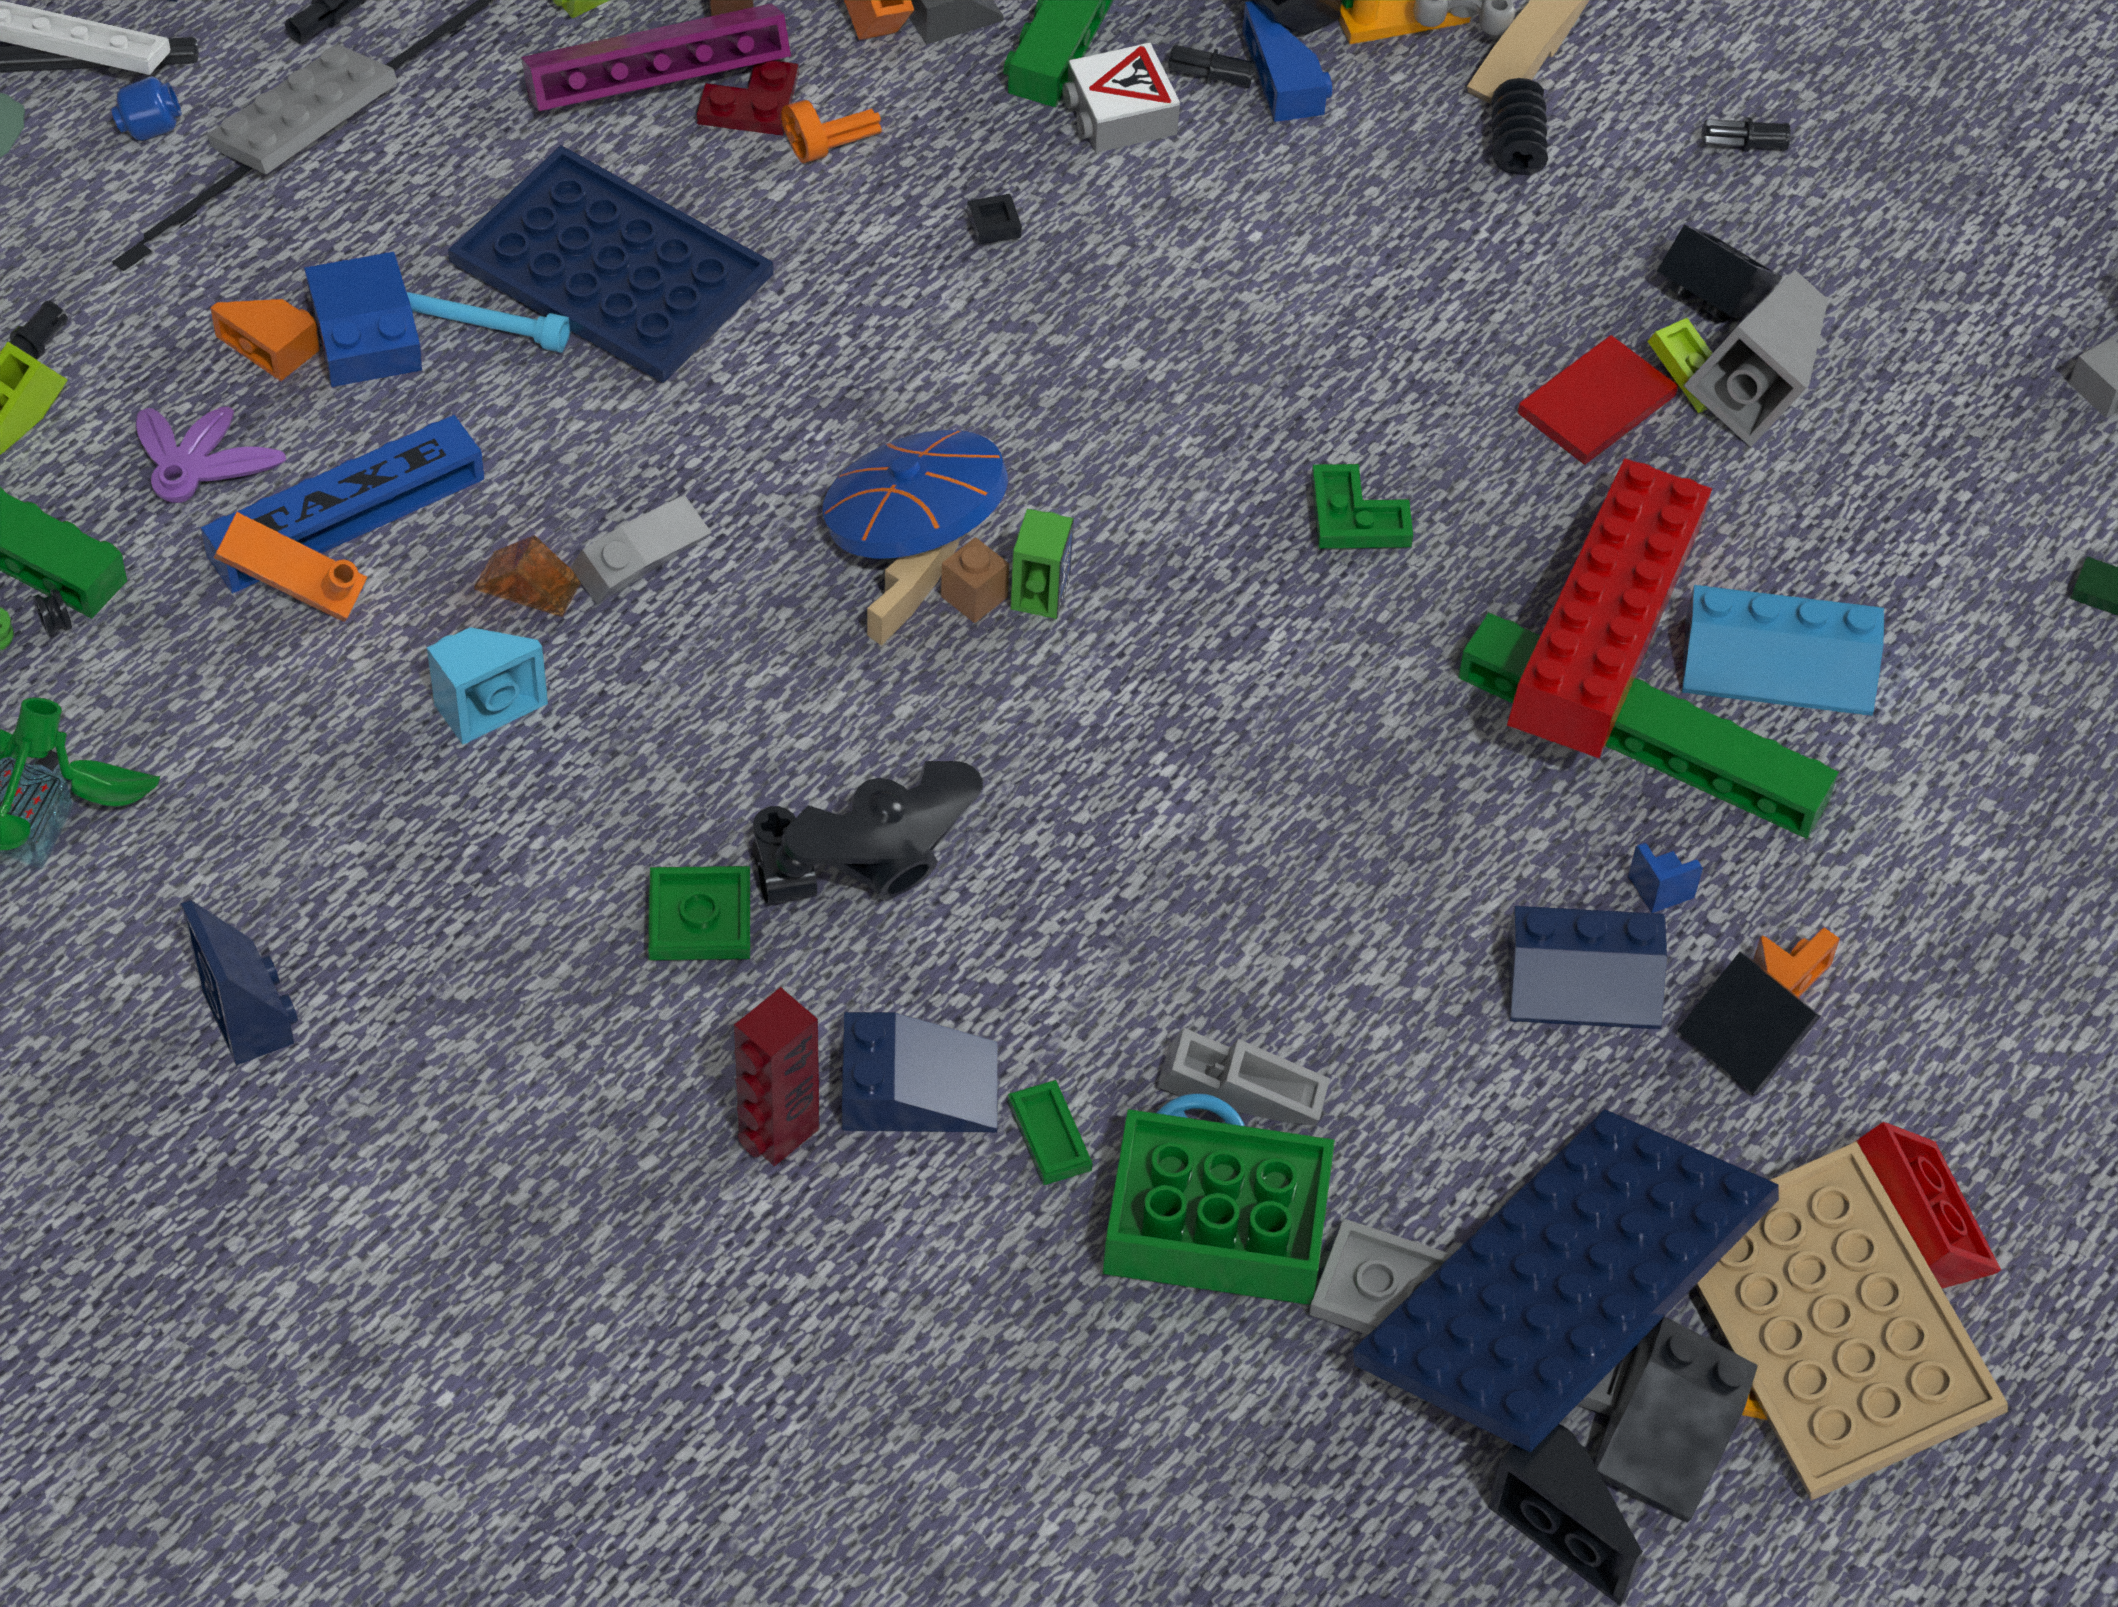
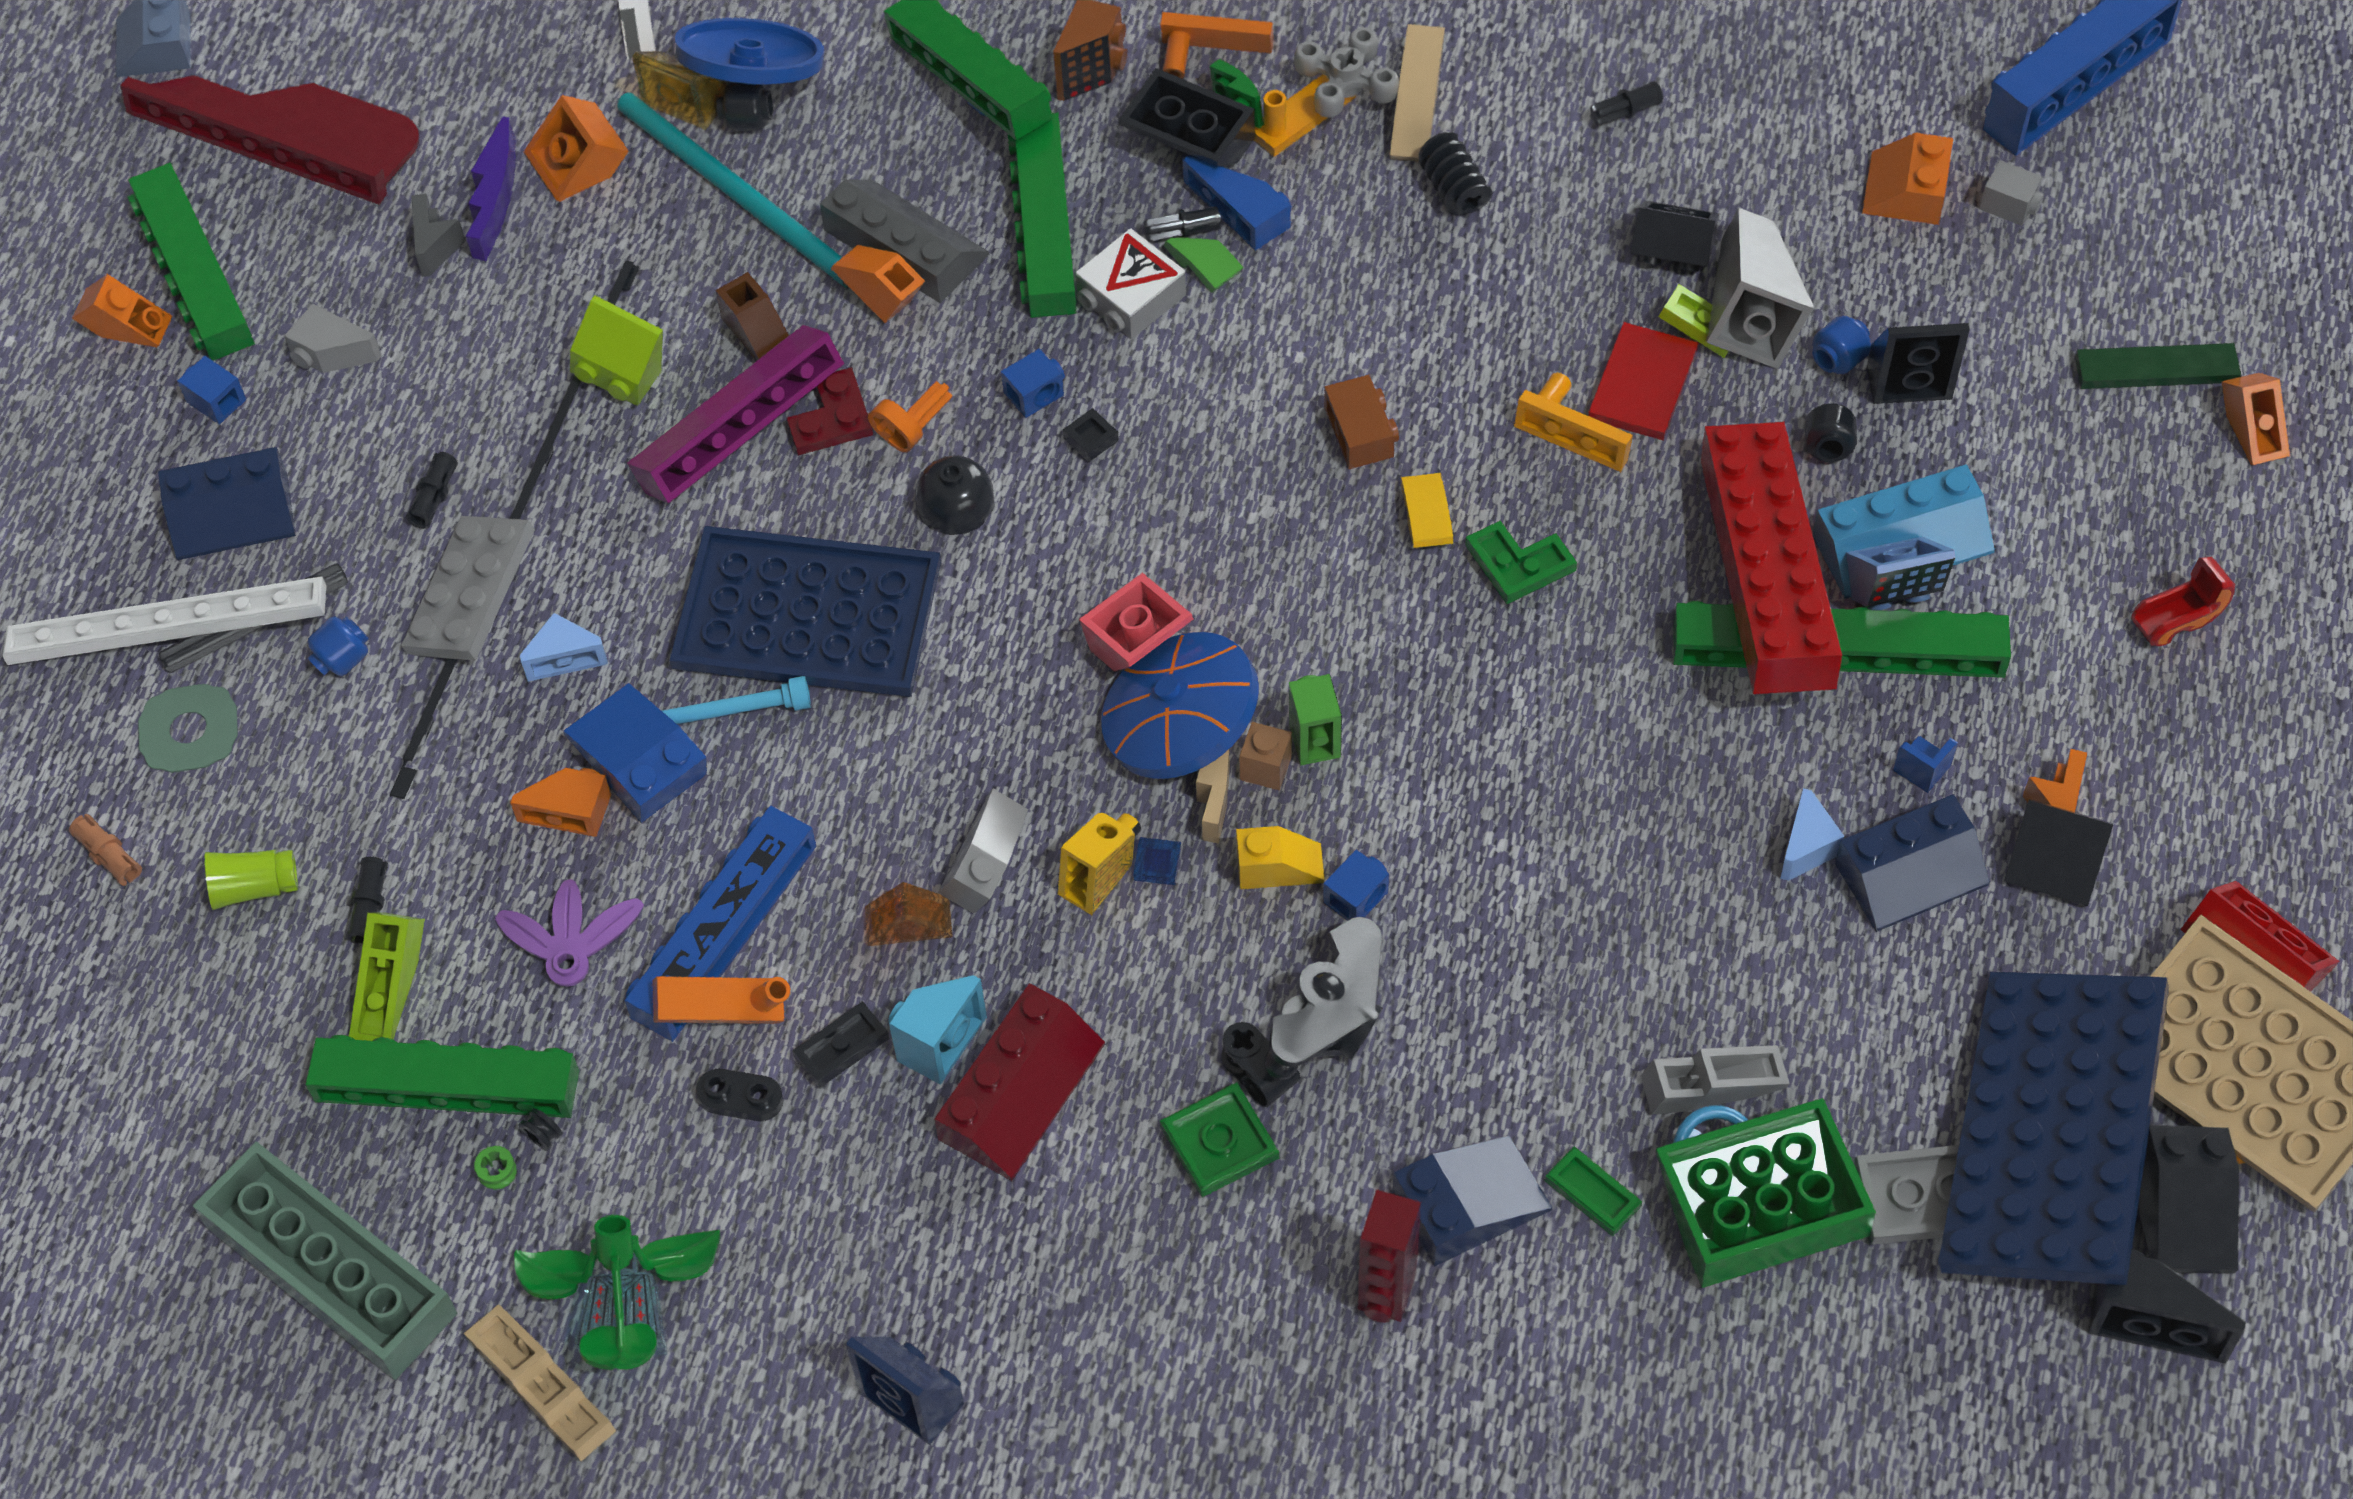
camera: 20 degrees left, 5 degrees up
(259, 664) = (737, 1096): none -> black plate
(350, 198) = (561, 649): none -> light blue slope
(384, 663) = (841, 1044): none -> black plate
(534, 770) = (1018, 1082): none -> dark red slope
(742, 600) = (1096, 859): none -> yellow torso
(807, 633) = (1157, 861): none -> clear blue tile
(823, 217) = (954, 495): none -> black cylinder
(916, 398) = (1132, 623): none -> coral slope
(925, 679) = (1277, 858): none -> yellow slope
(967, 147) = (1033, 382): none -> blue brick
(989, 738) = (1356, 886): none -> blue brick
(1216, 108) = (1206, 258): none -> bright green slope
(1273, 315) = (1360, 421): none -> dark orange brick
(1291, 426) = (1427, 510): none -> yellow slope
(1474, 396) = (1570, 429): none -> light orange piece
(1487, 897) = (1812, 839): none -> light blue slope
(1745, 683) = (1898, 572): none -> medium blue slope
(1763, 525) = (1831, 432): none -> black head
(1828, 446) = (1841, 345): none -> blue head
(1892, 489) = (1916, 363): none -> black slope
(2008, 322) = (1909, 178): none -> orange slope
(2044, 849) = (2186, 605): none -> red animal

